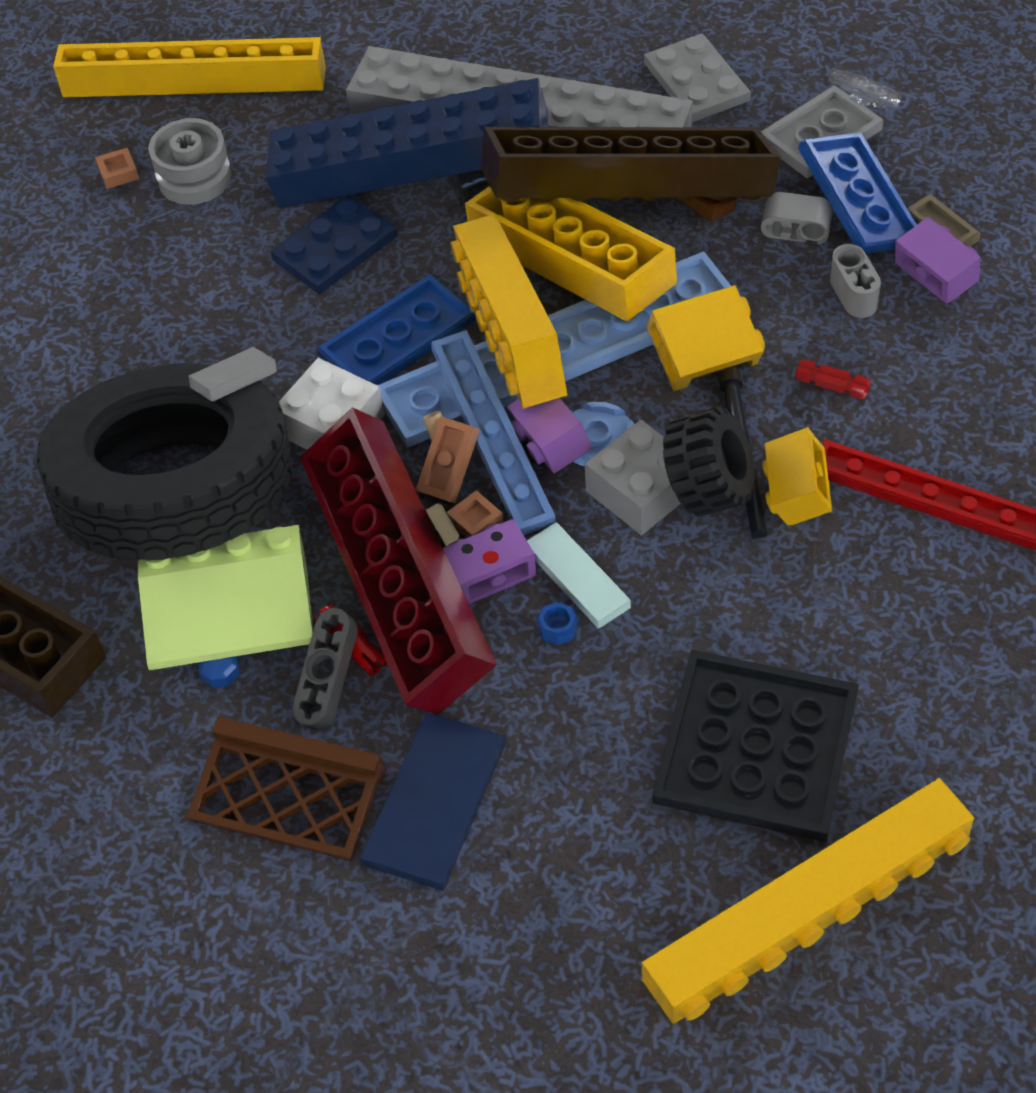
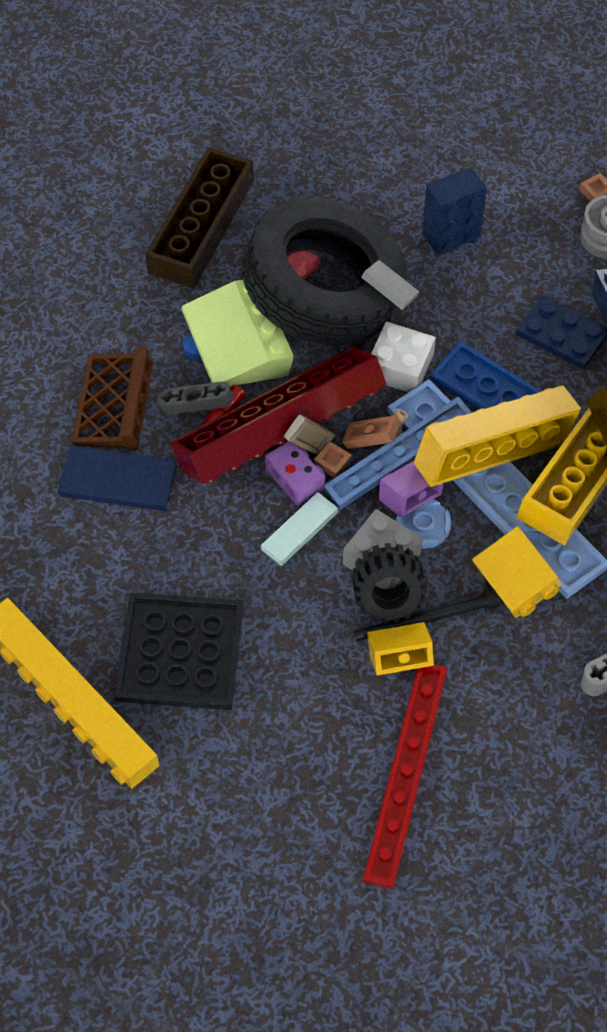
camera: 75 degrees right, 5 degrees up
(114, 298) = (453, 210): none -> dark blue brick
(557, 623) = (256, 522): blue tile -> none
(833, 379) = (508, 669): red axle -> none

